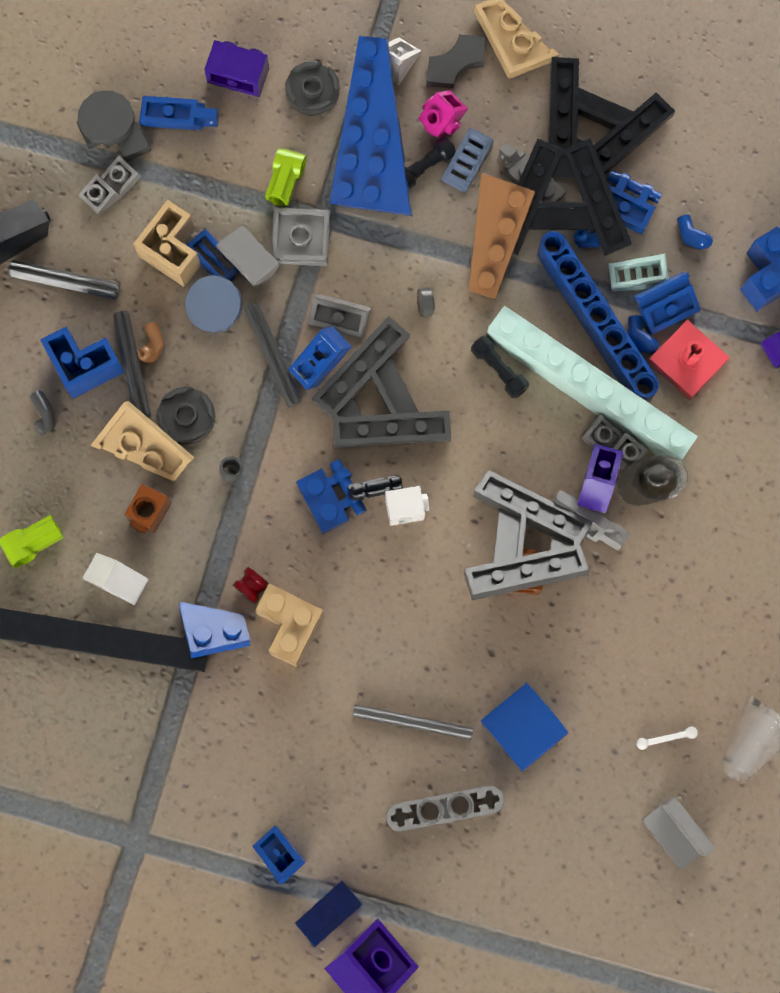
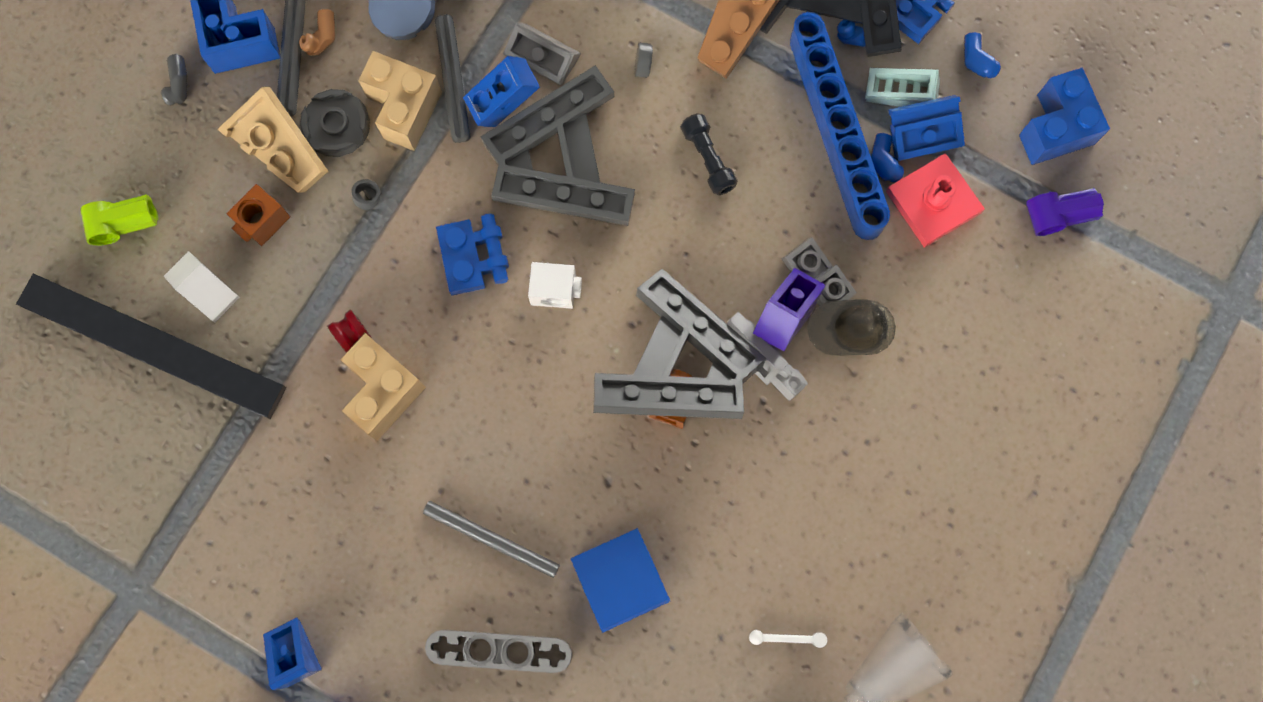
camera: 20 degrees right, 0 degrees up
(212, 629) = (290, 372): wing -> none
(241, 377) = (407, 98): none -> tan brick
(374, 487) = (521, 255): black axle -> none
(589, 385) = (808, 200): light aqua brick -> none

